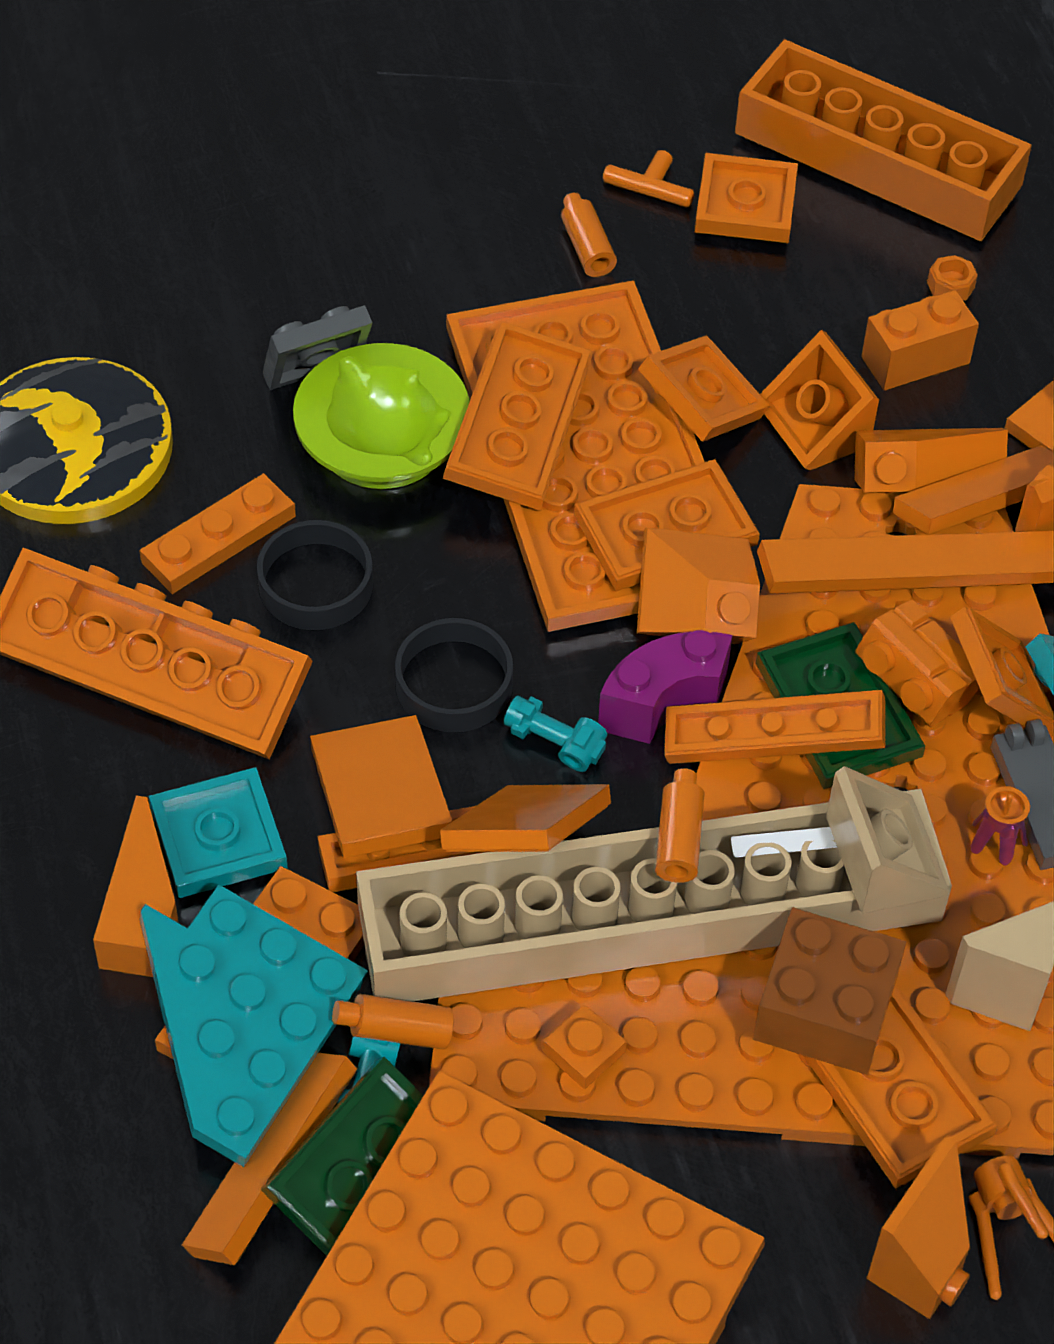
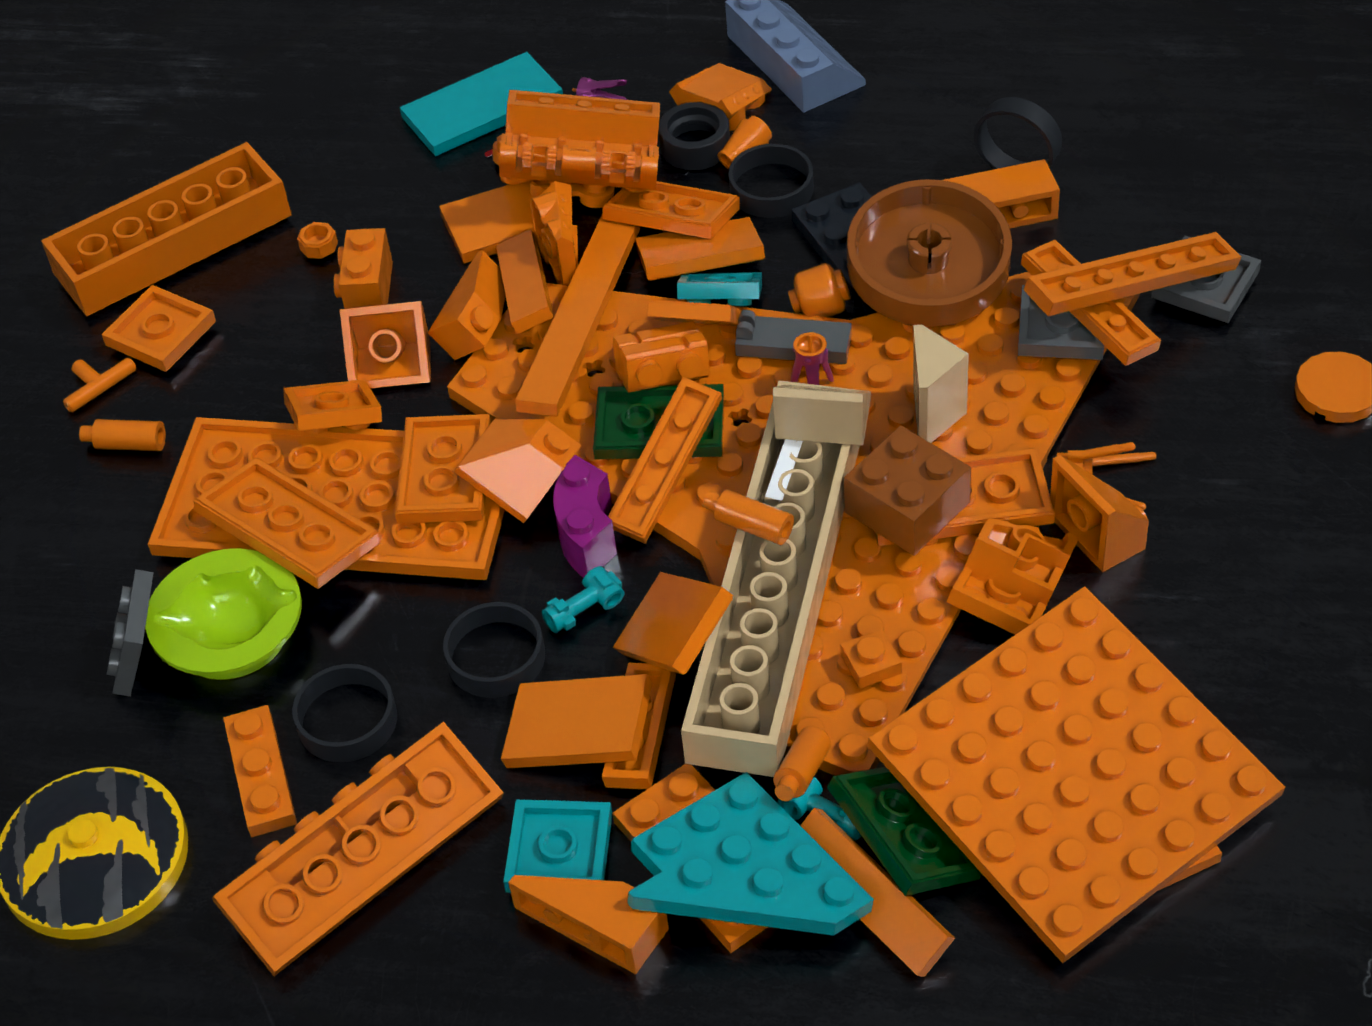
camera: 60 degrees left, 5 degrees down
(790, 1165) = (1011, 574): none -> orange slope

